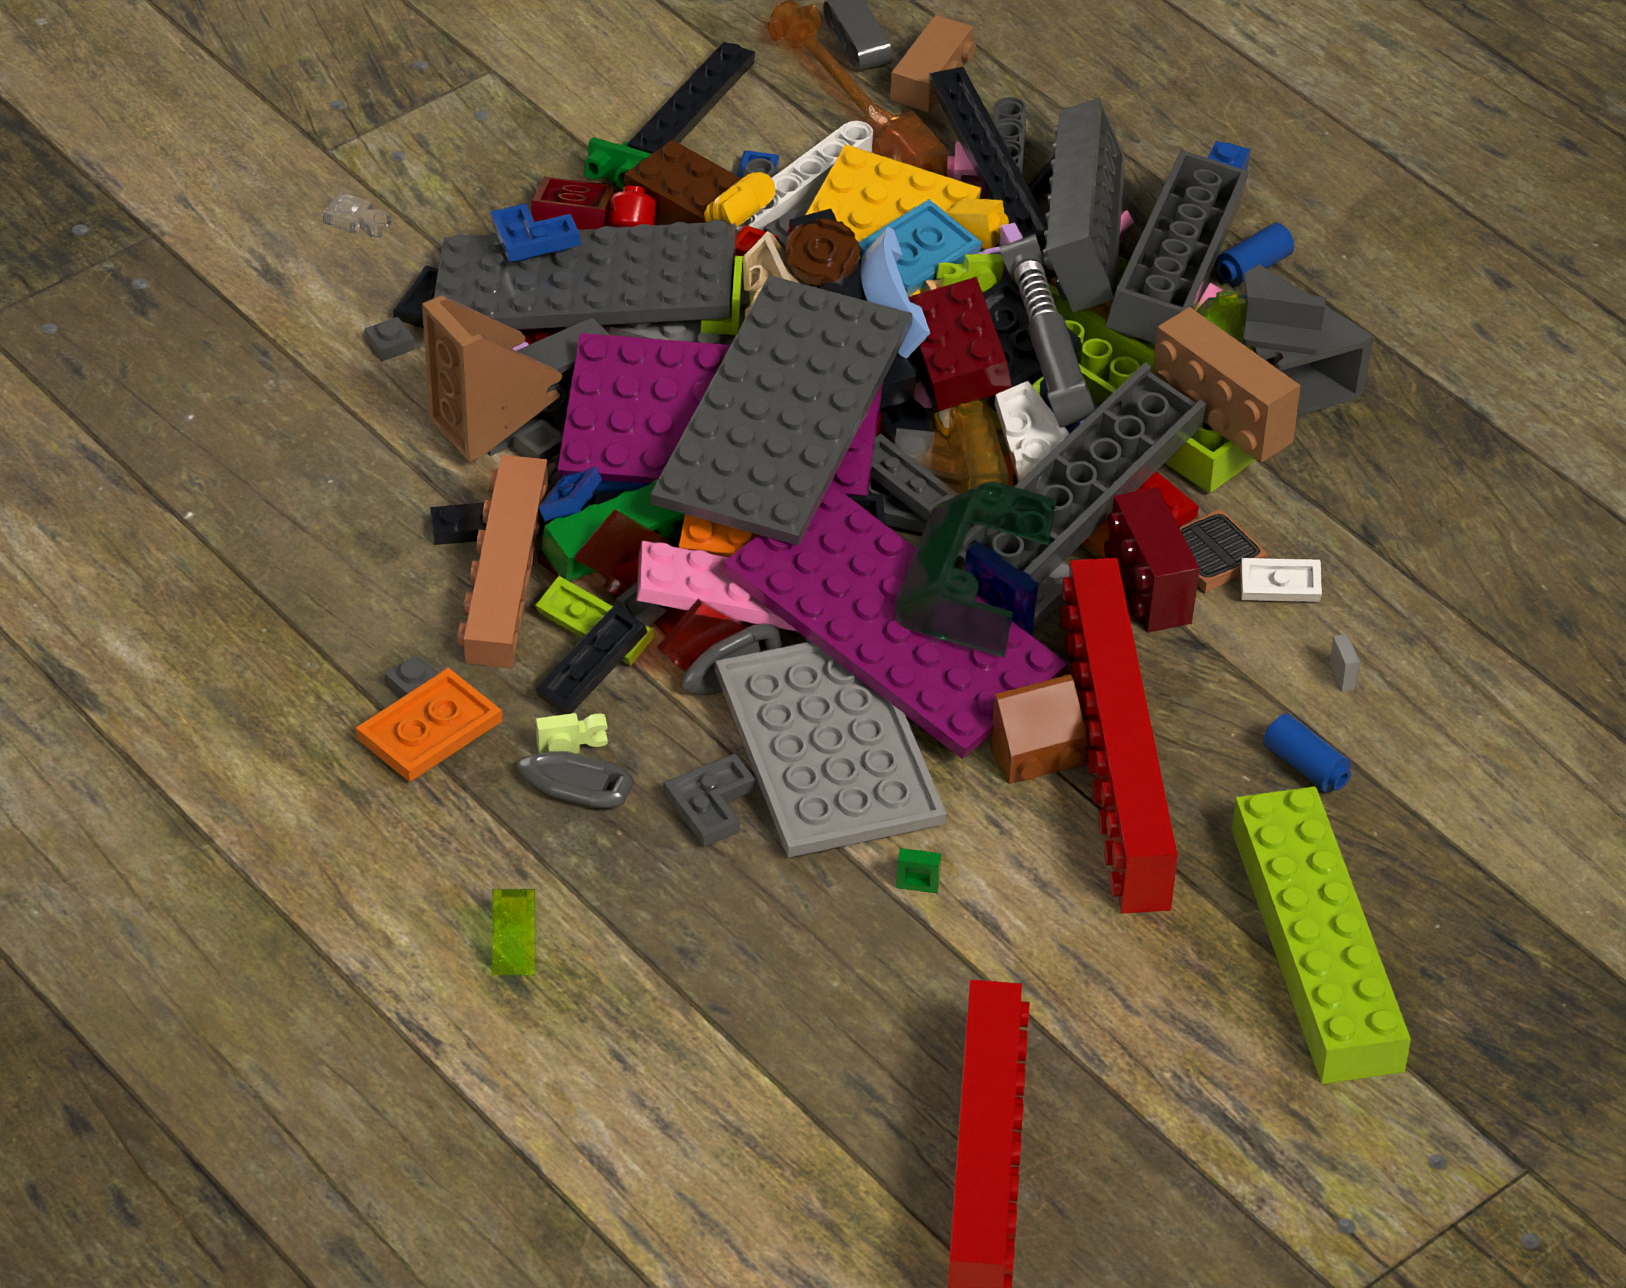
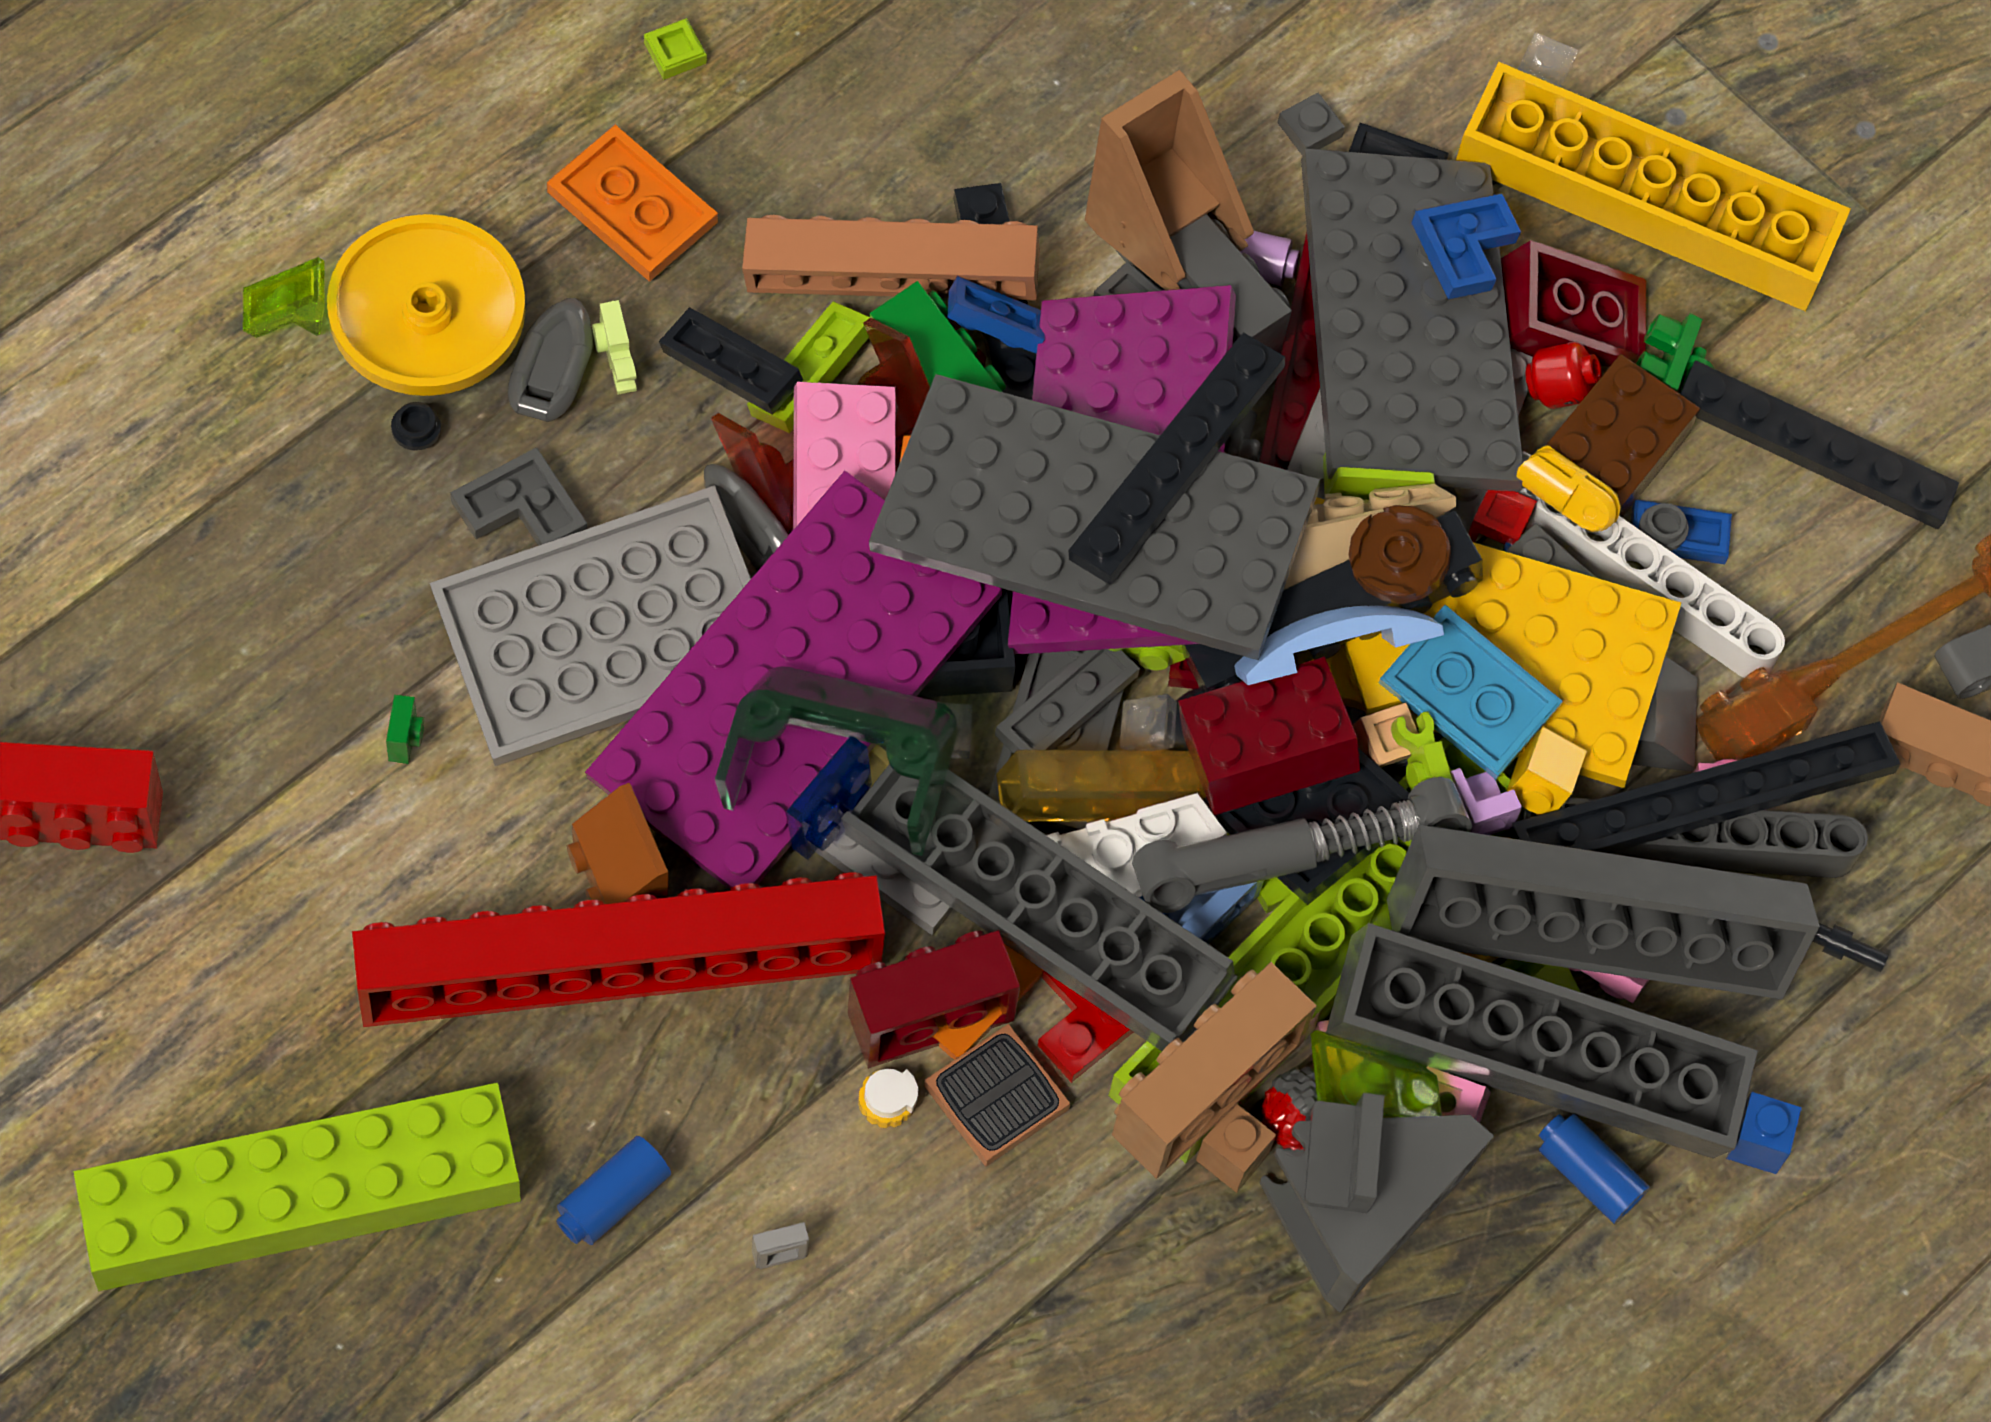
camera: 80 degrees right, 20 degrees up
(275, 700) = (675, 49): none -> lime tile
(408, 676) = (715, 183): dark grey plate -> none
(472, 157) = (1653, 186): none -> yellow brick
(527, 837) = (426, 305): none -> yellow dish
(633, 864) = (415, 426): none -> black plate
(751, 343) = (1176, 458): none -> black plate
(1217, 606) = (888, 1097): none -> white piece
(1280, 579) = (934, 1173): white plate -> none

